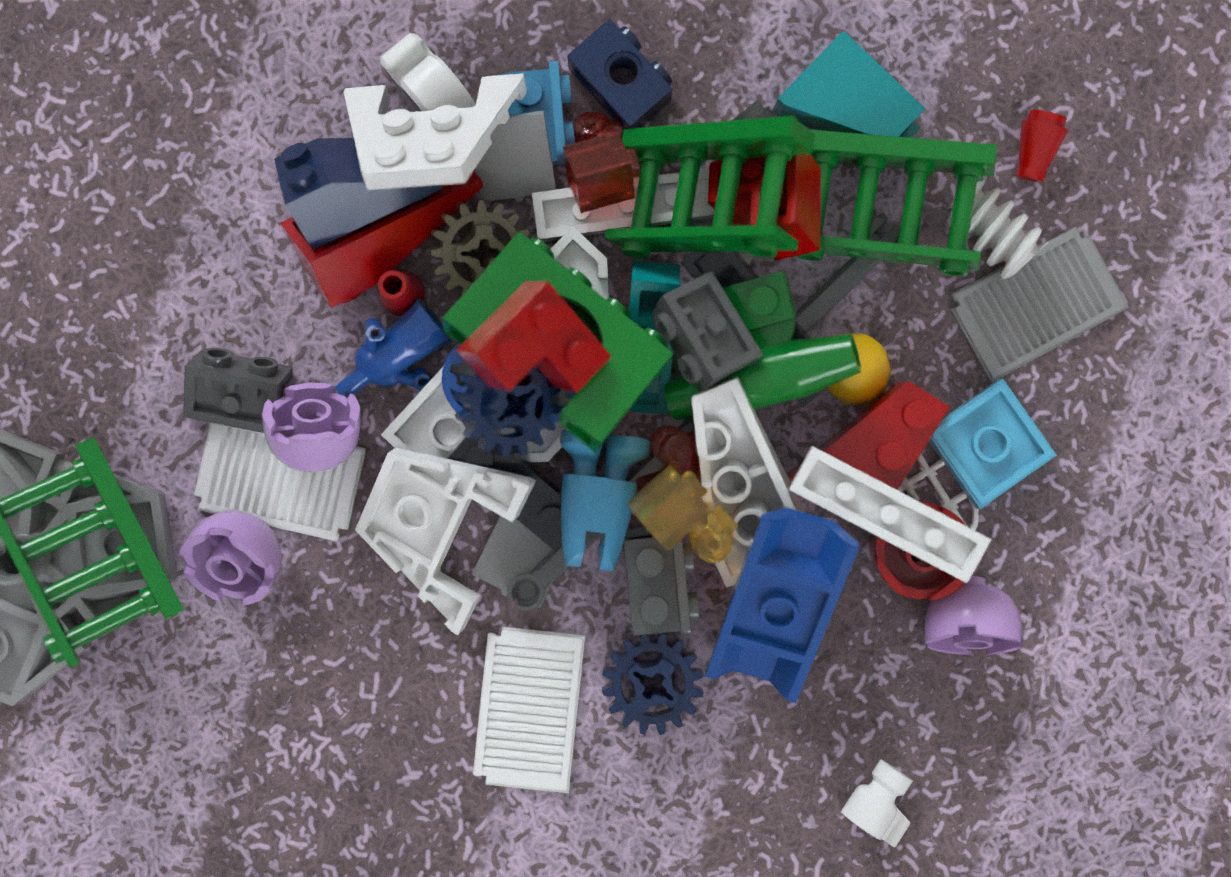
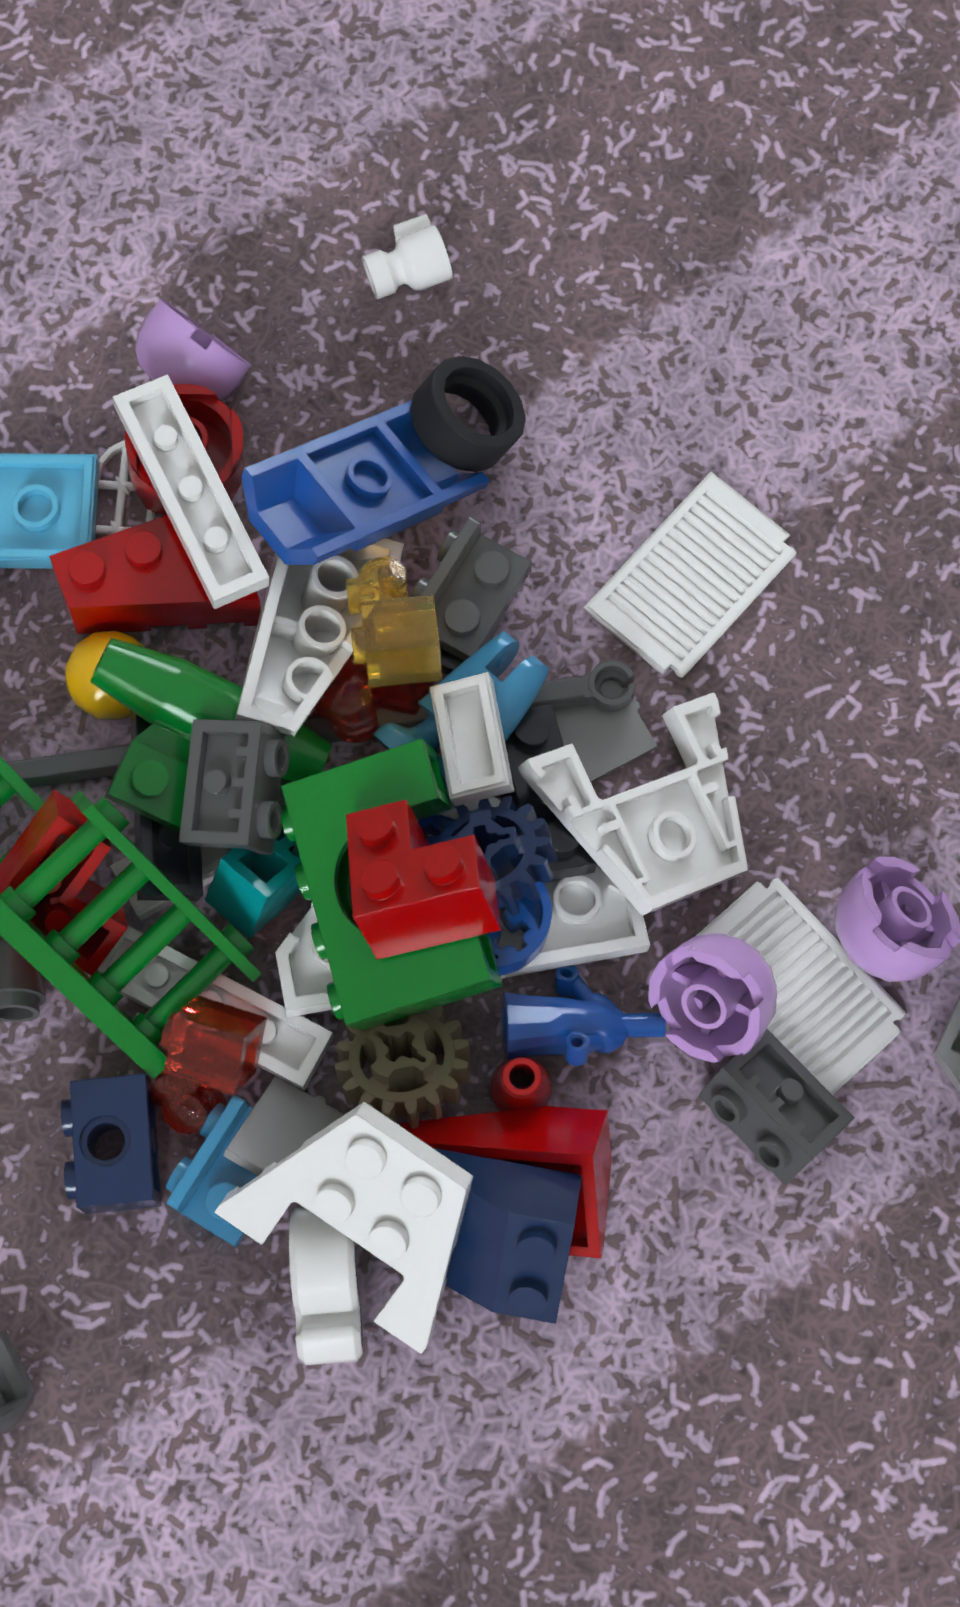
camera: 145 degrees left, 15 degrees down
(576, 476) = (471, 739): none -> white tile
(640, 699) = (562, 494): dark blue gear -> none
(741, 738) = (488, 392): none -> black tyre

